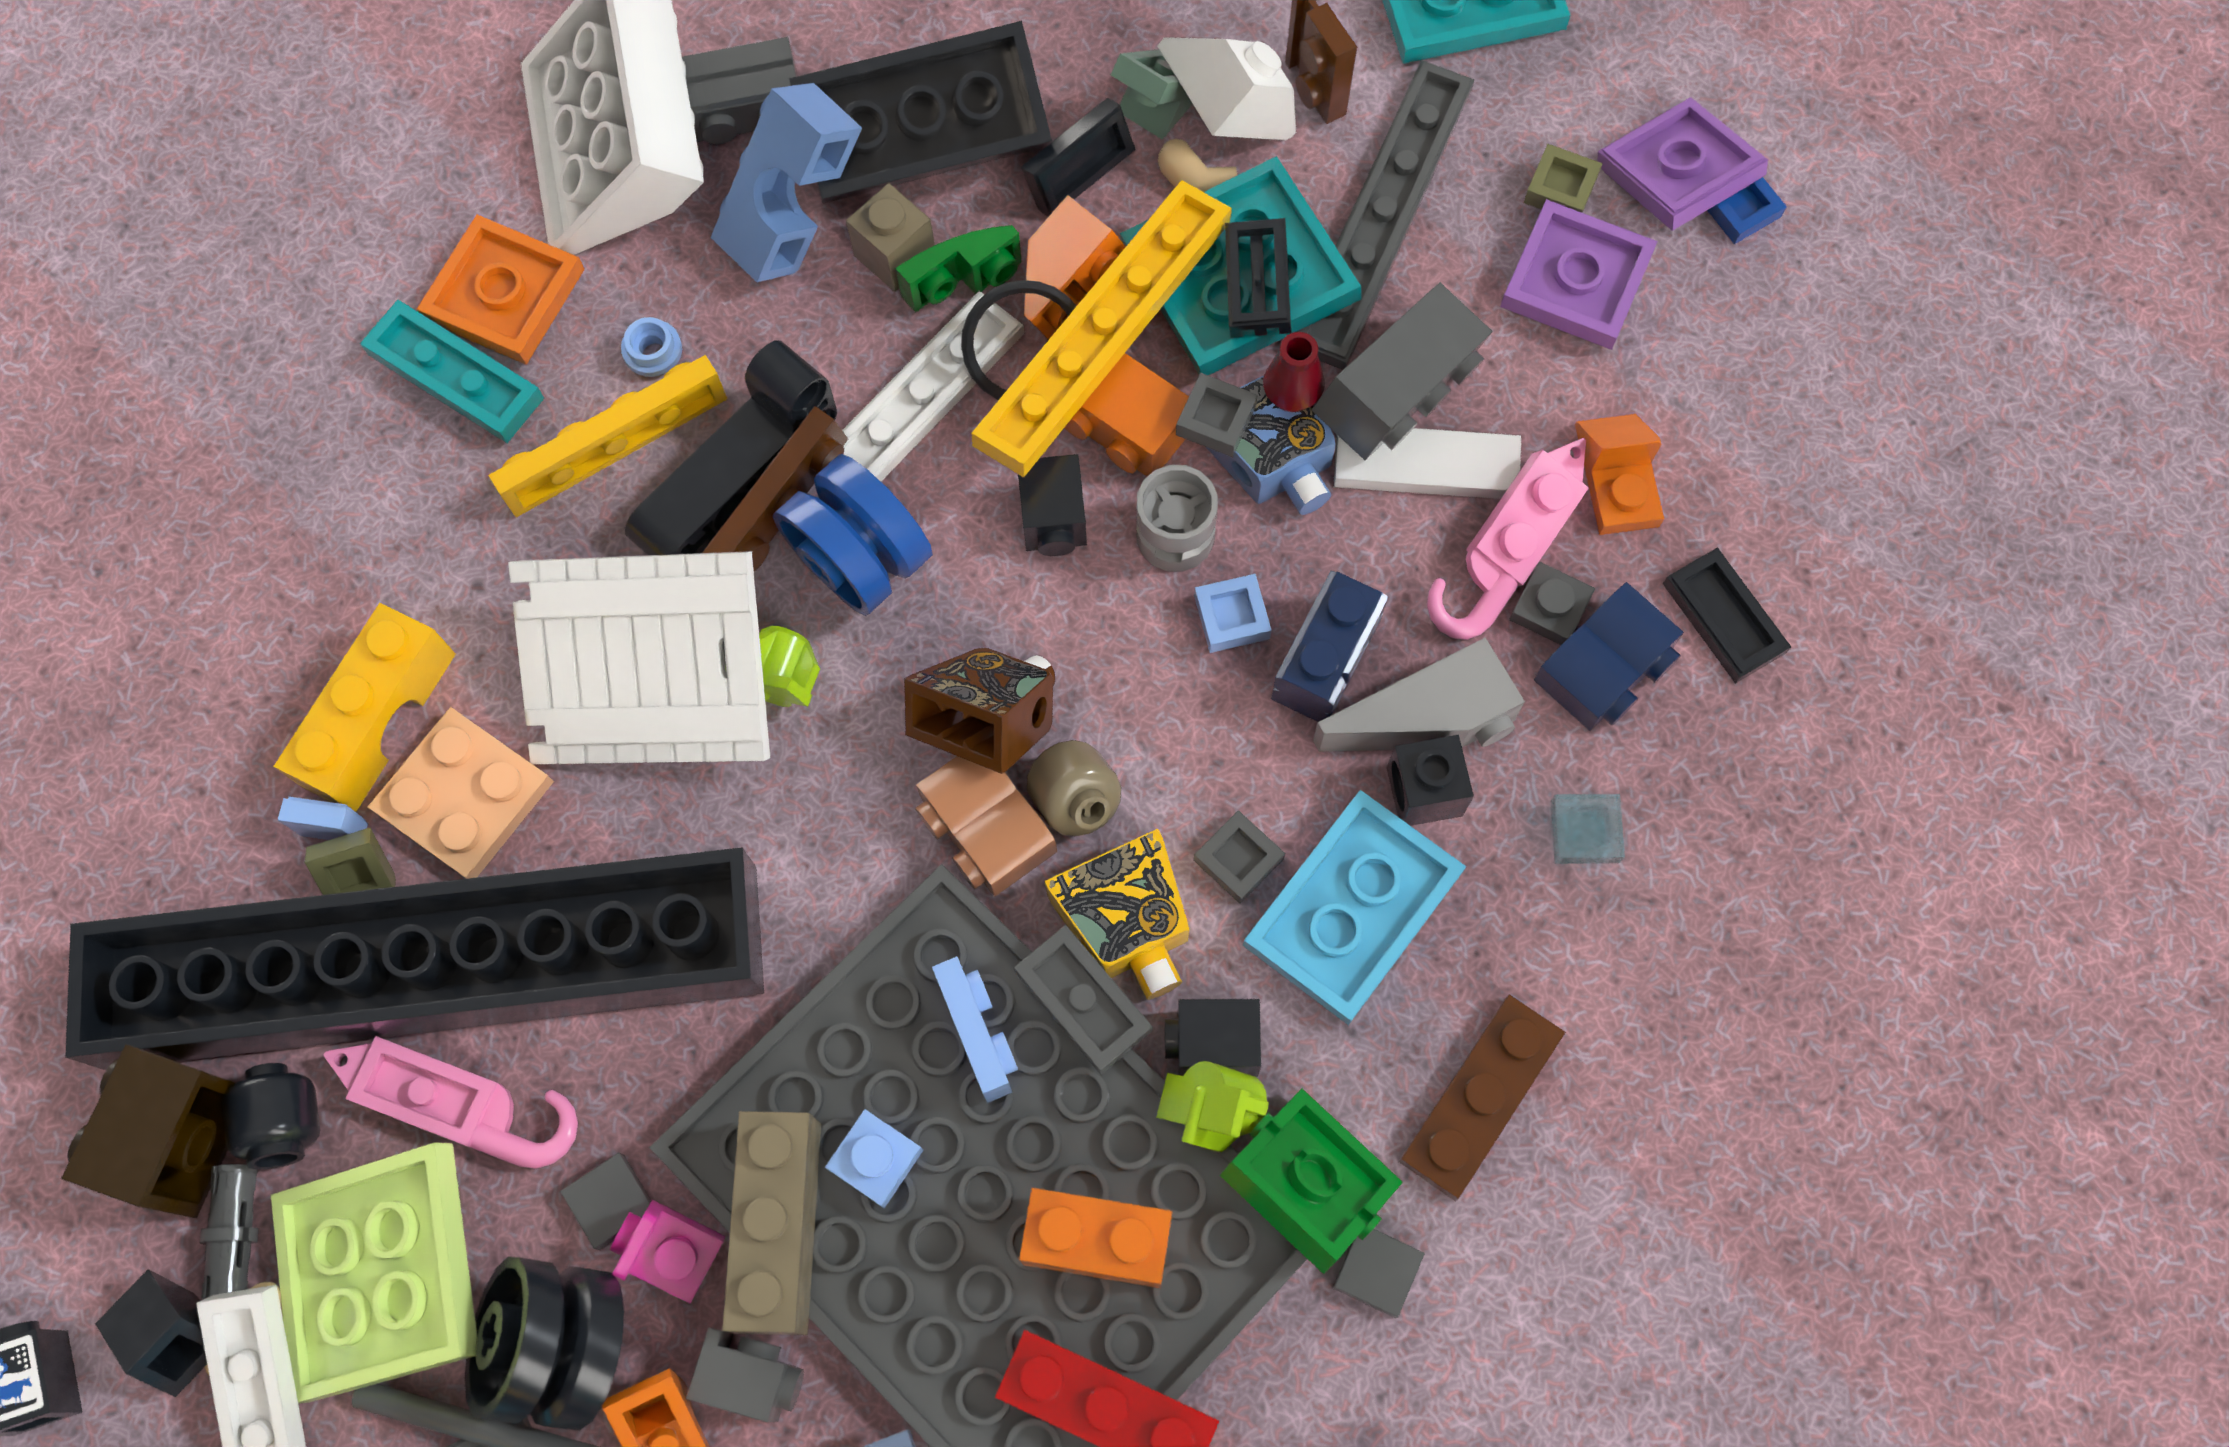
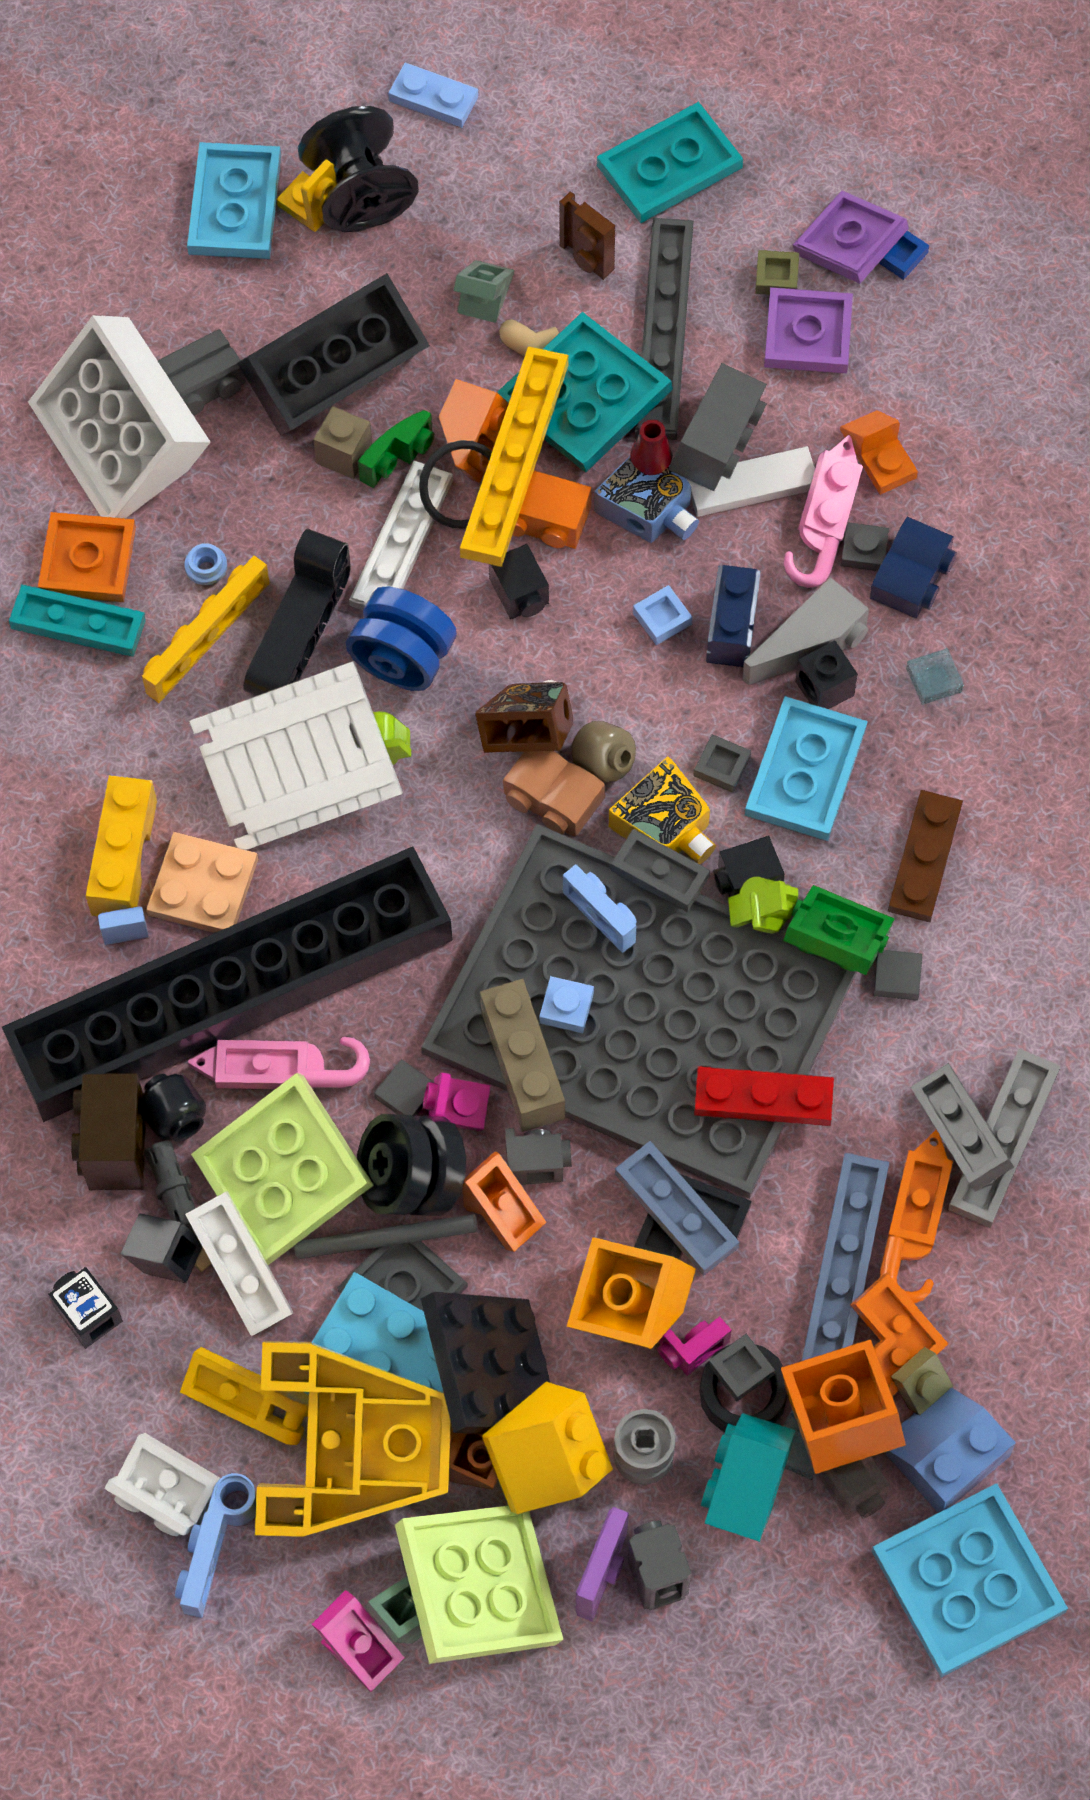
camera: 20 degrees left, 5 degrees down
(349, 864) = (152, 942): olive plate -> none
(792, 470) = (351, 594): reddish brown plate -> none
(798, 141) = (251, 455): medium blue arch -> none
(1079, 156) = (447, 352): black tile -> none
(1095, 1237) = (722, 999): orange brick -> none
(1176, 517) = (605, 565): light grey wheel -> none
(1216, 414) = (608, 490): dark grey tile -> none
(1234, 86) = (537, 273): white slope -> none
(1260, 319) = (612, 422): black tile -> none
(1726, 615) = (977, 519): black tile -> none

